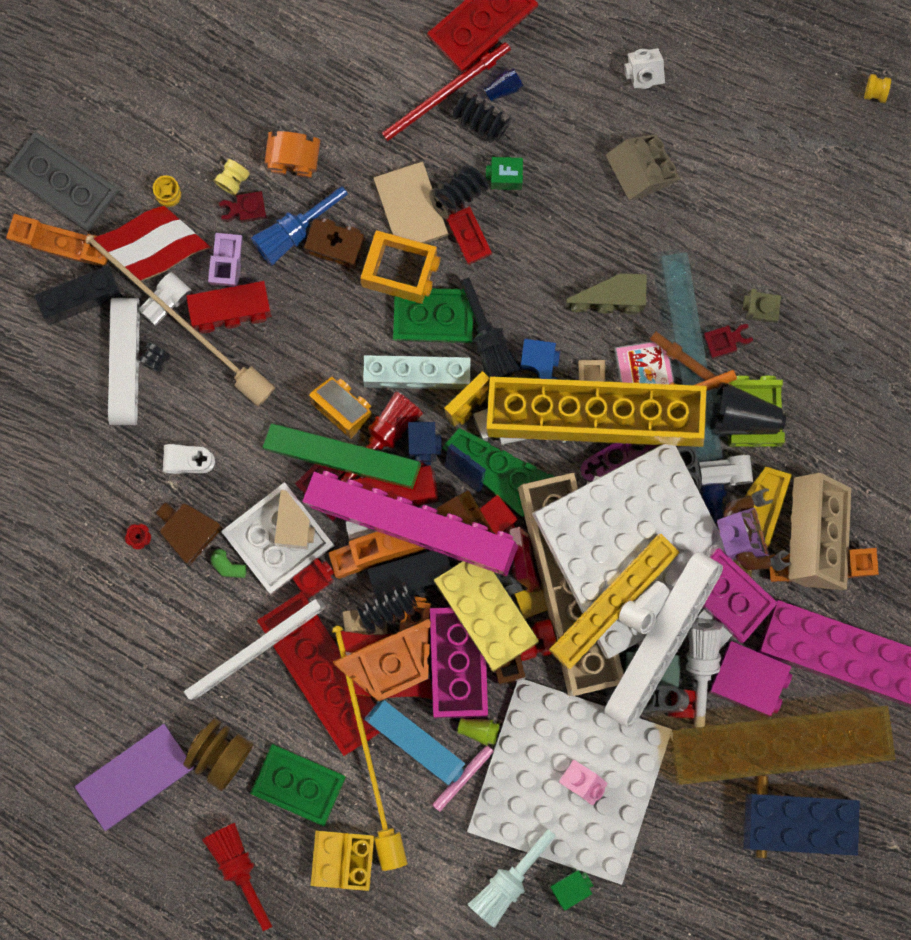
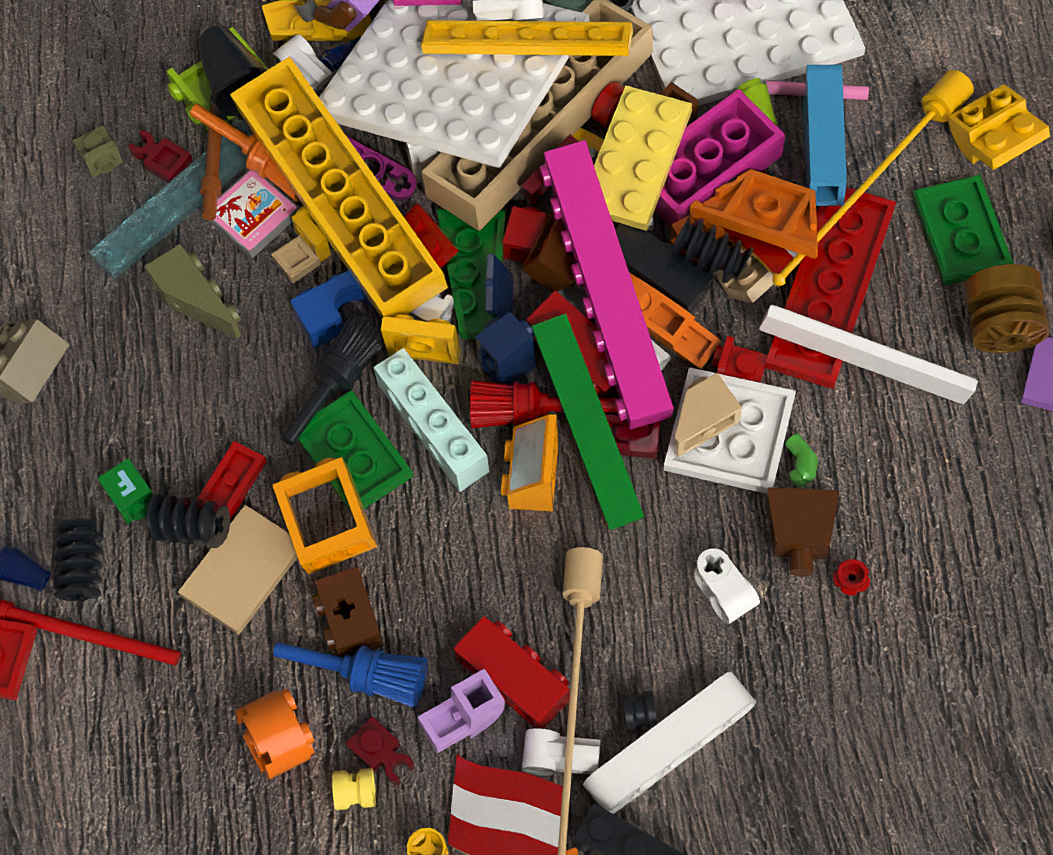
camera: 120 degrees left, 15 degrees down
(540, 455) = (431, 235): none -> red plate

